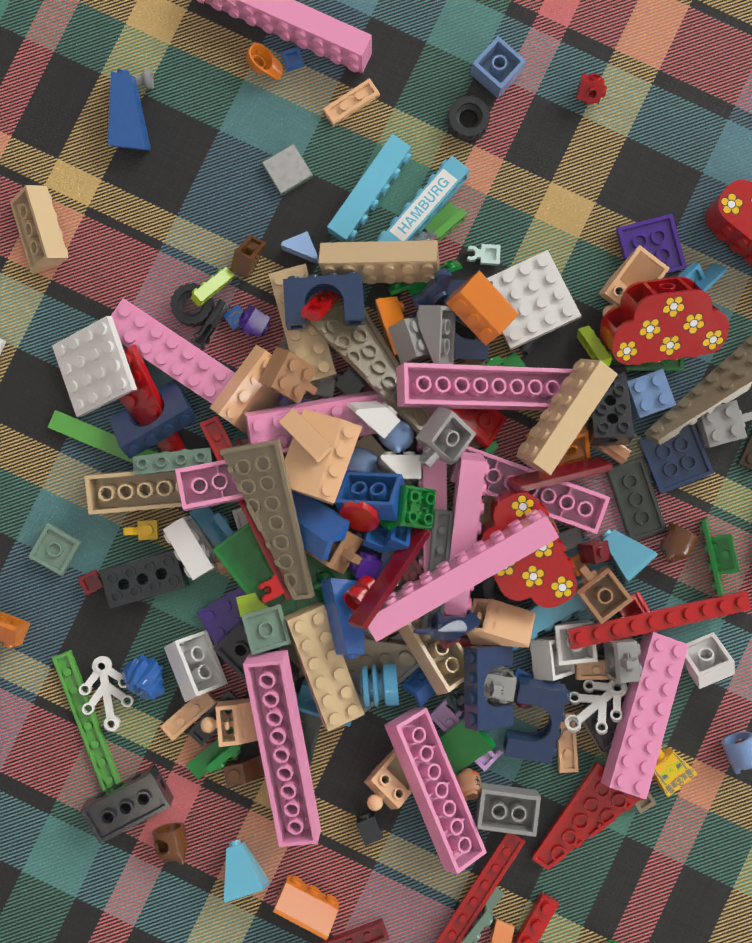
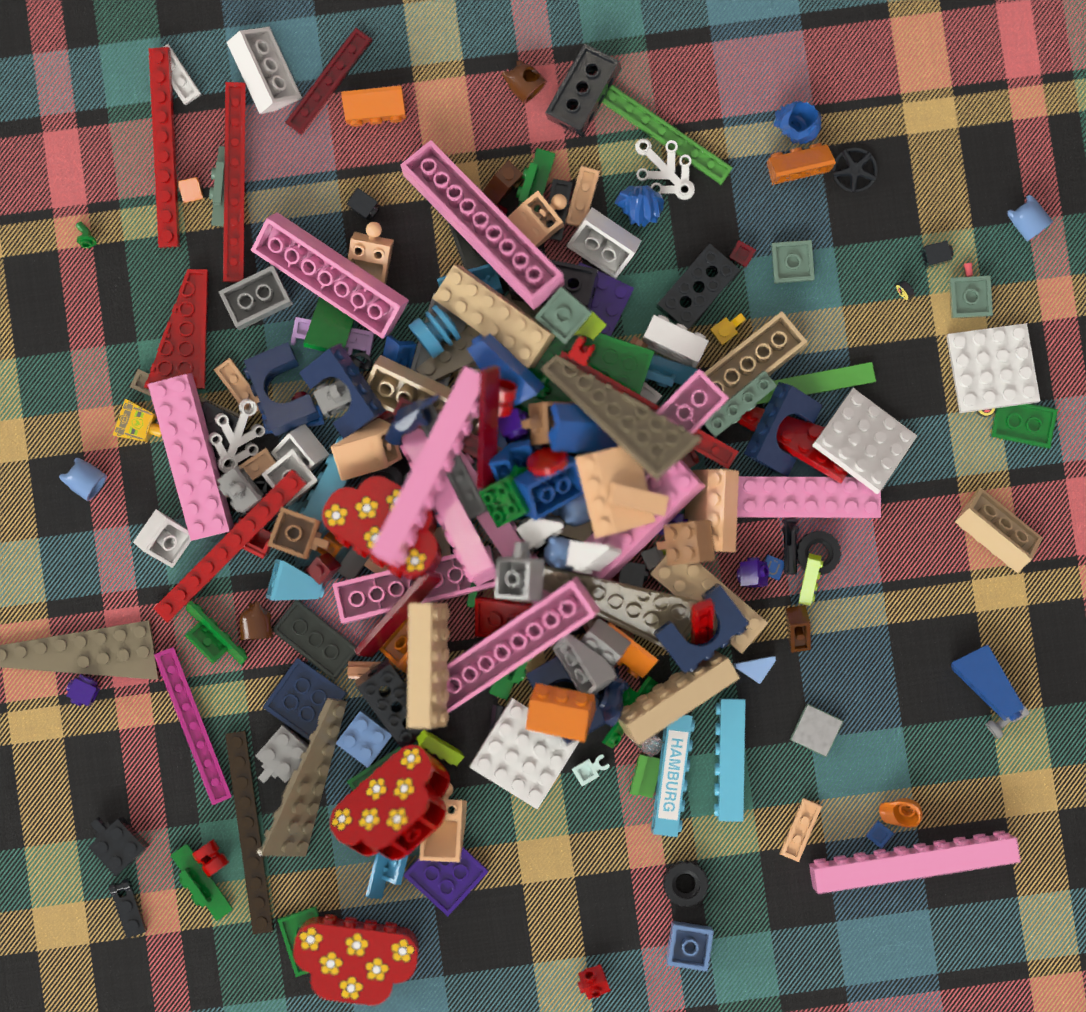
camera: 145 degrees right, 0 degrees up
(242, 872) = (447, 97): medium azure slope -> none
(469, 783) = (302, 298): nougat head -> none

